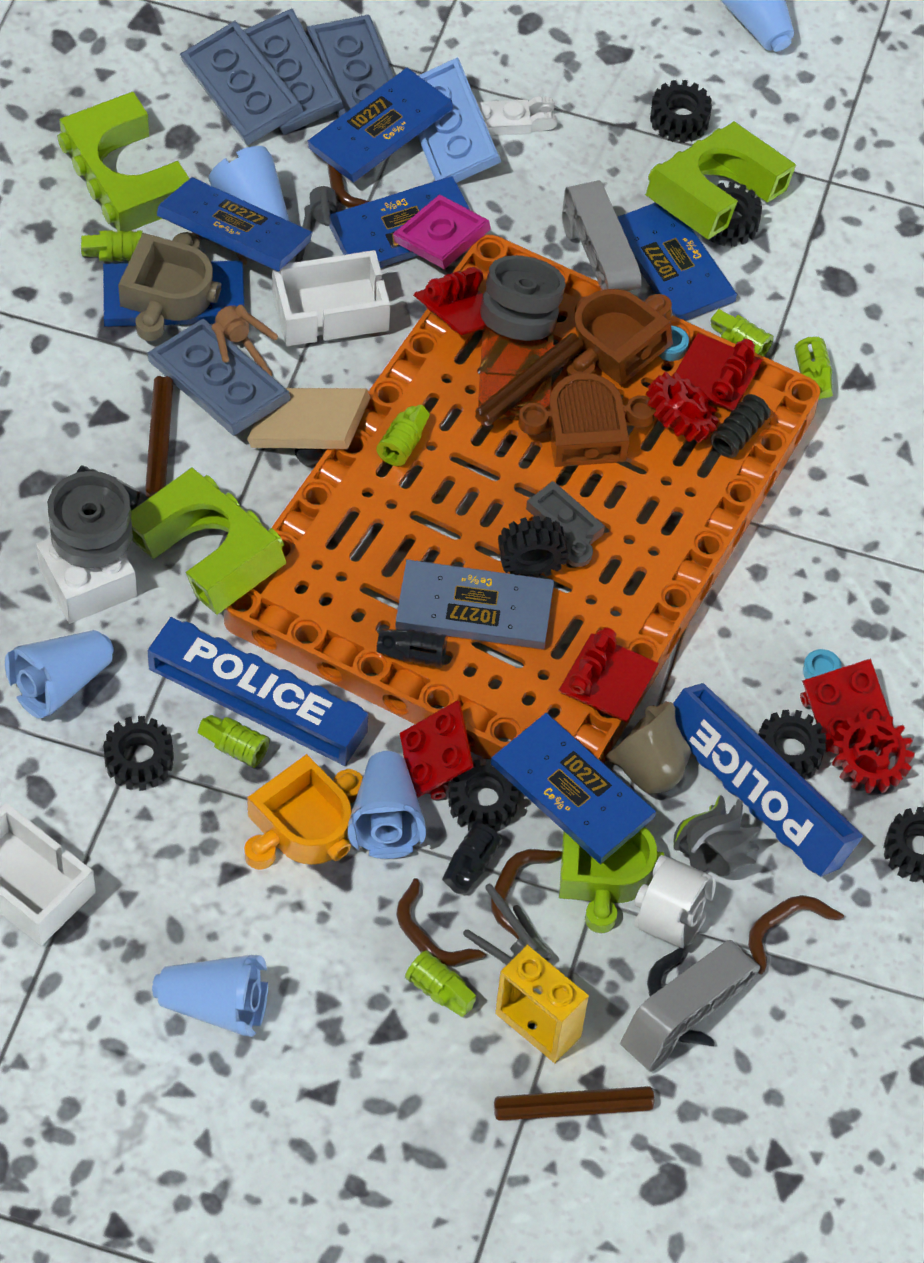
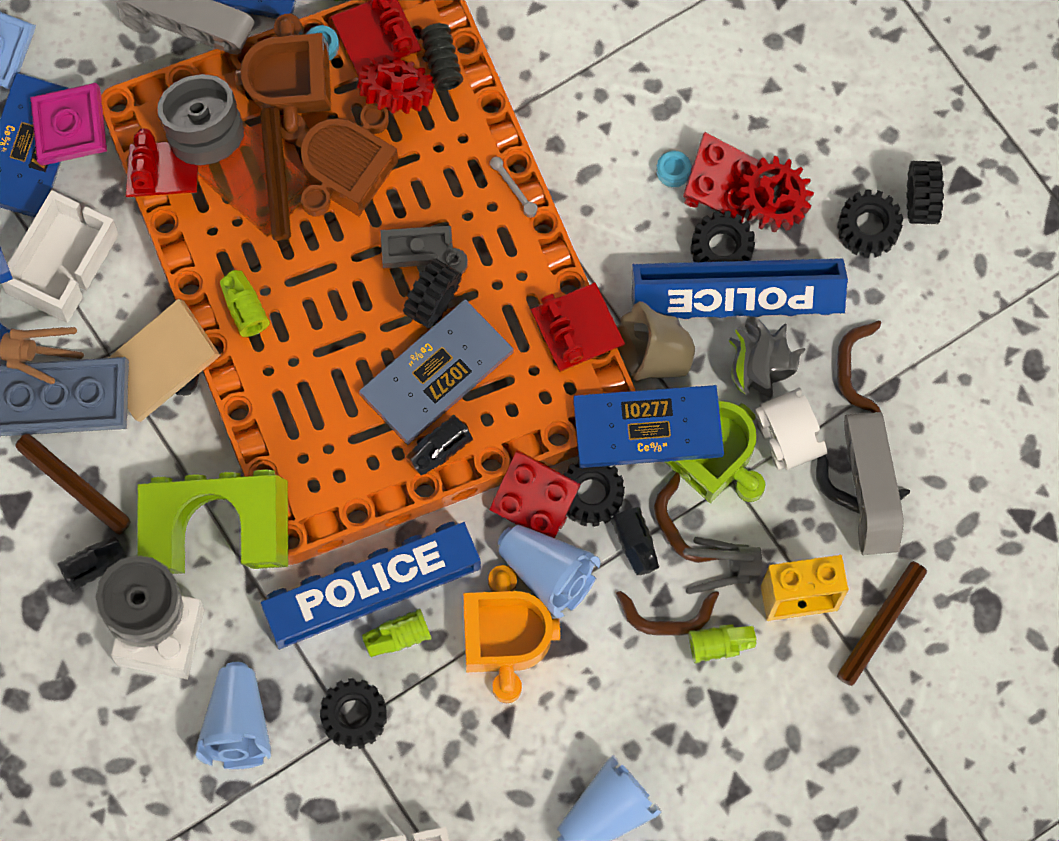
camera: 50 degrees left, 15 degrees up
(677, 576) = (530, 208): none -> light grey hinge

